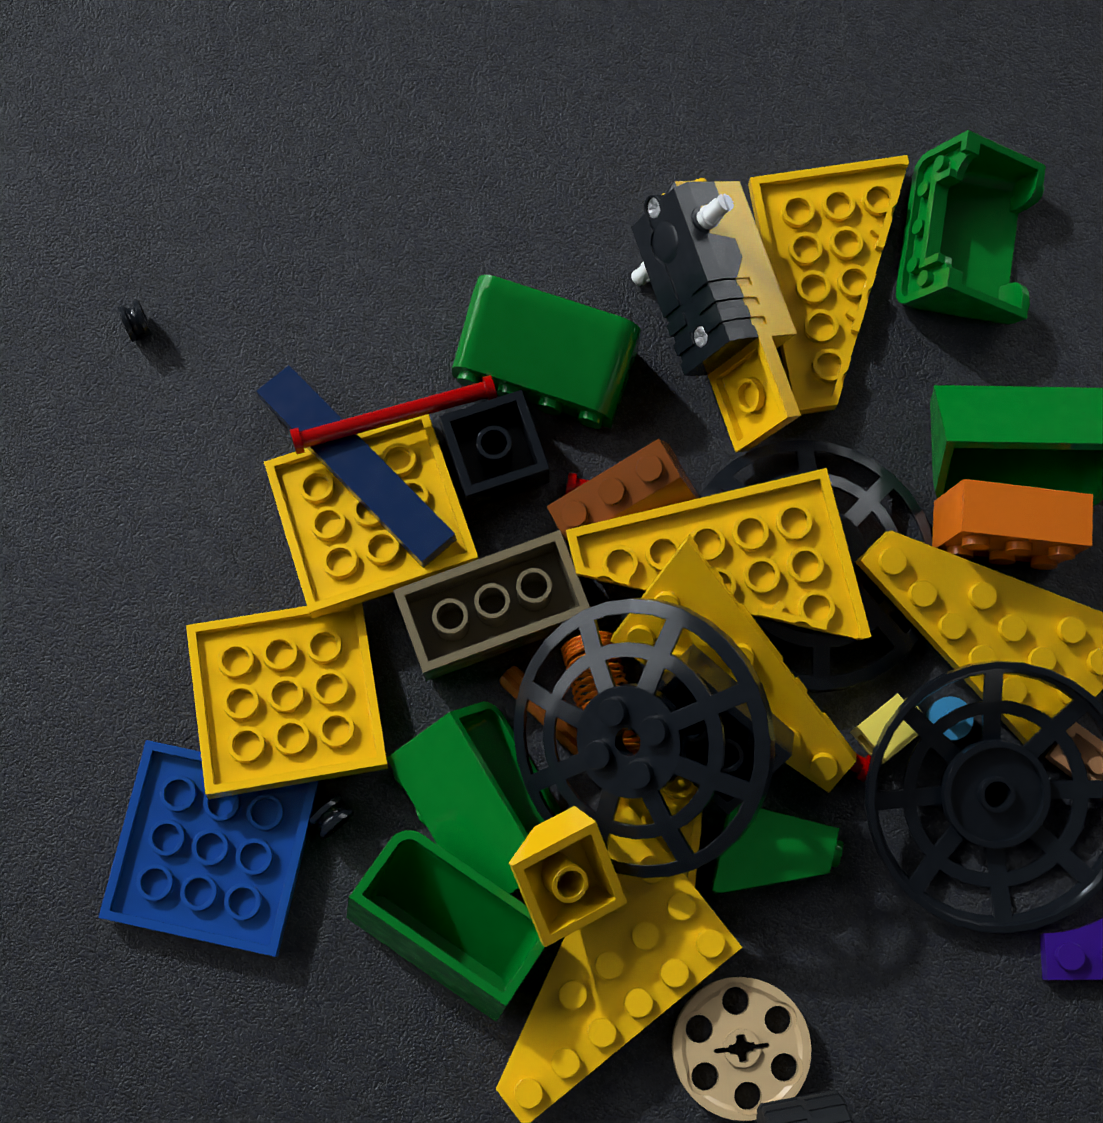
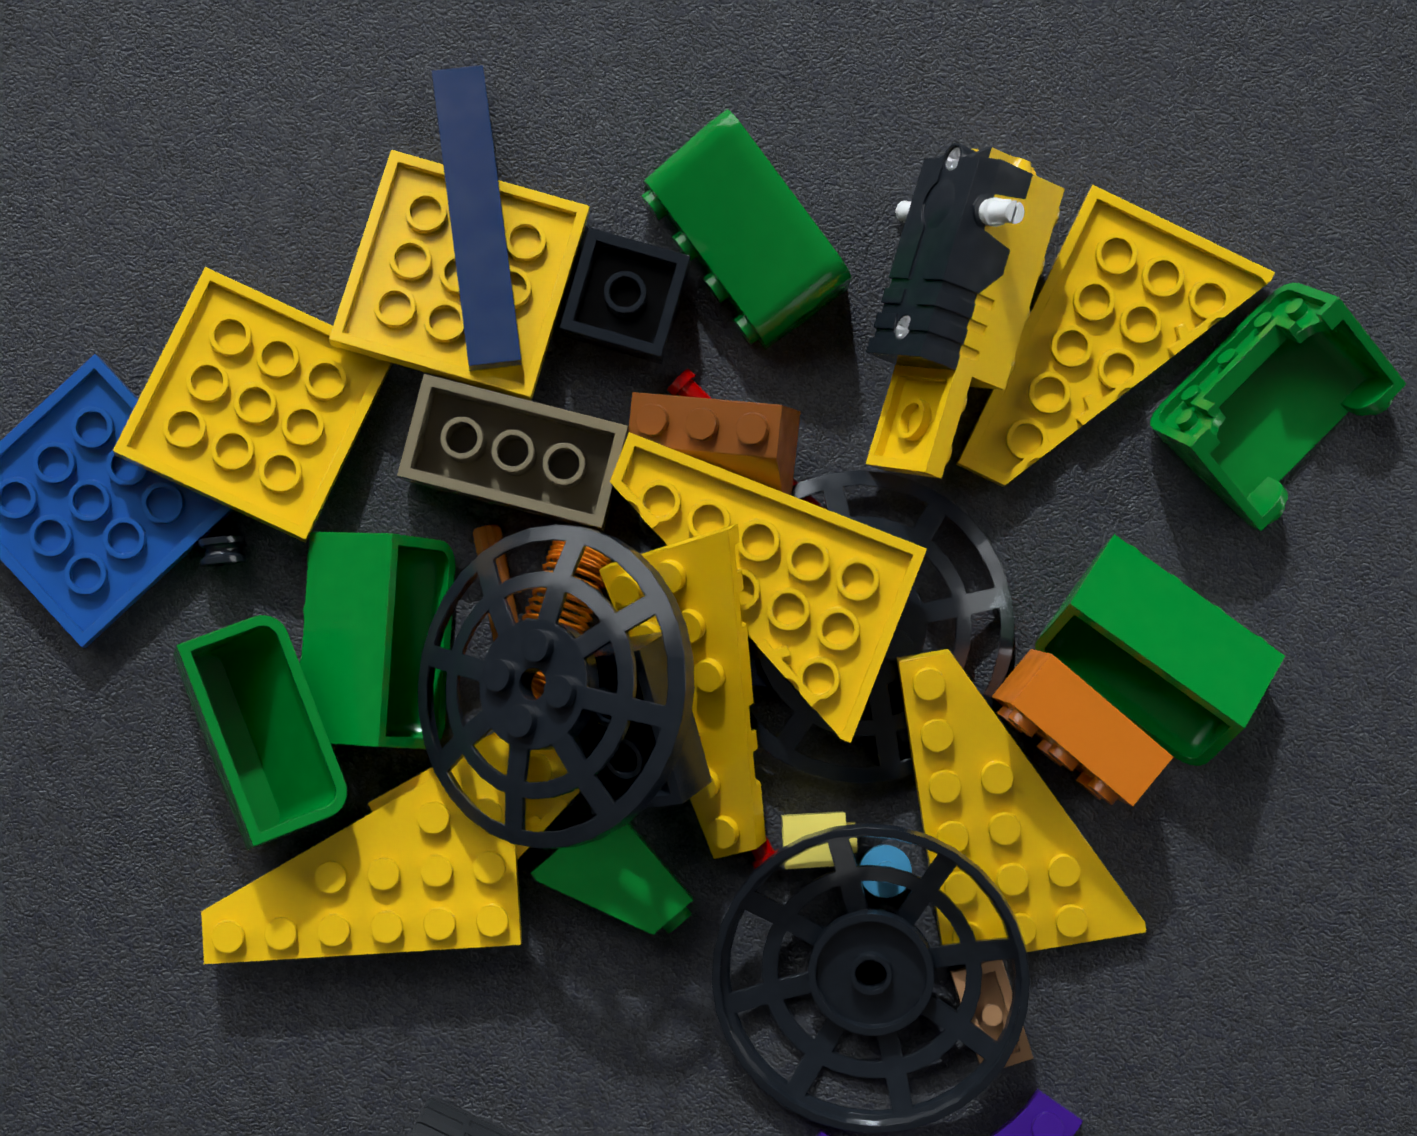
camera: 35 degrees right, 10 degrees up
(393, 414) = (547, 193): red bar -> none
(566, 875) = (390, 765): yellow slope -> none
(725, 1028) = (459, 1005): tan wedge -> none

